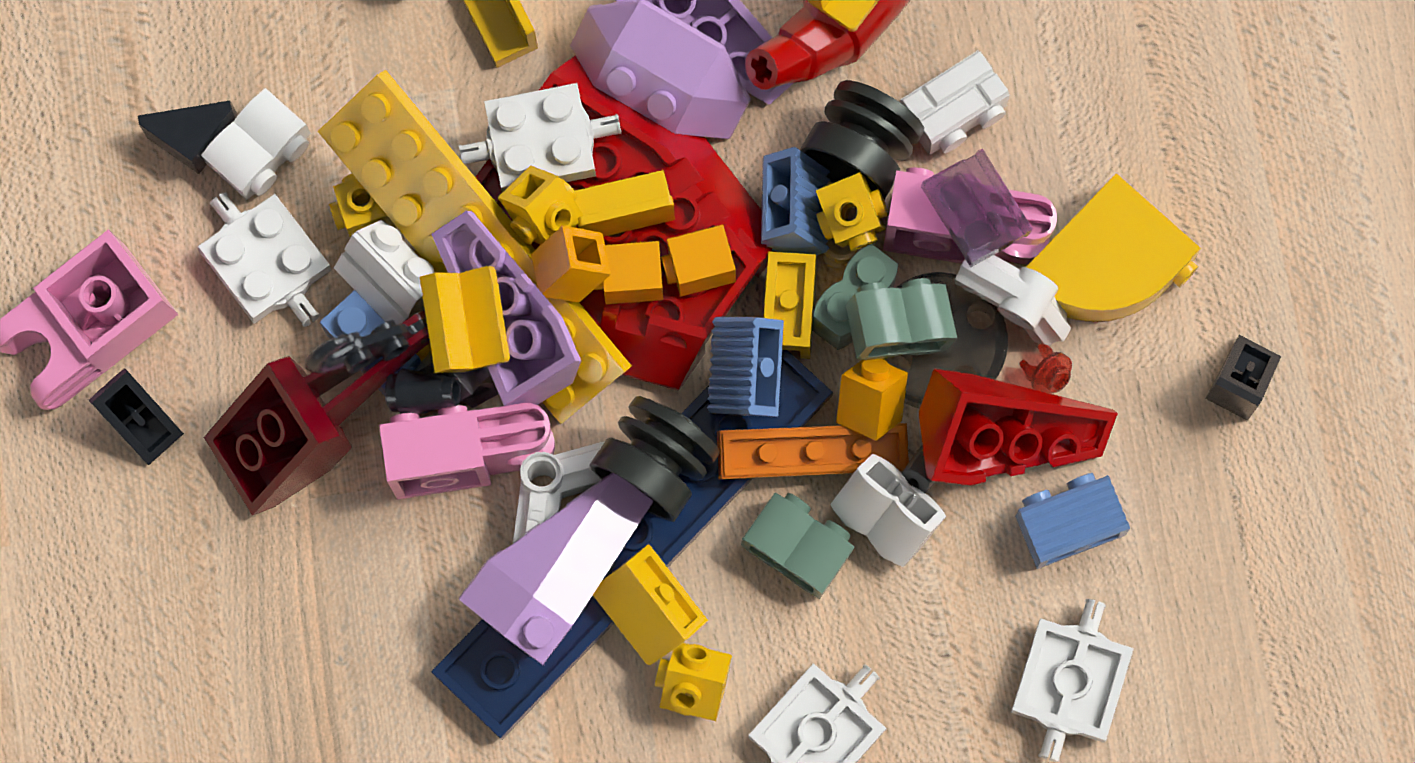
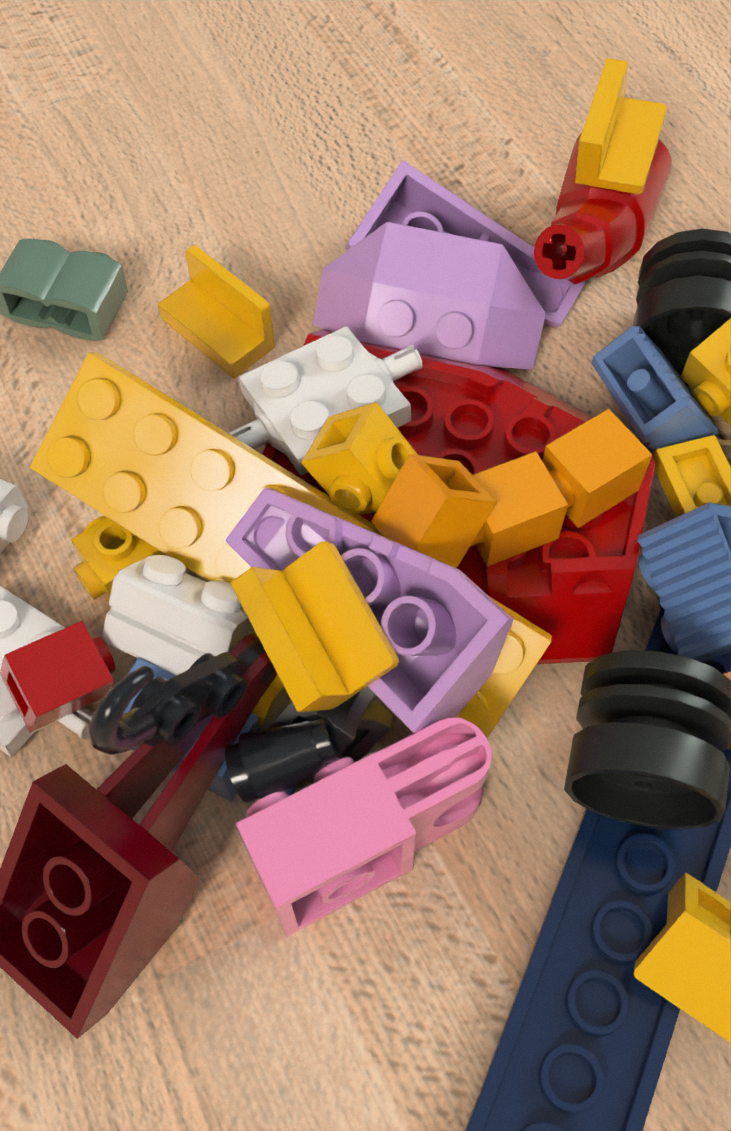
camera: 20 degrees left, 15 degrees down
(299, 284) = (58, 675): none -> red brick
(549, 574) = (576, 977): lavender wedge -> none
(570, 475) = (502, 871): white piece -> none
(625, 204) = (477, 430): yellow panel -> none

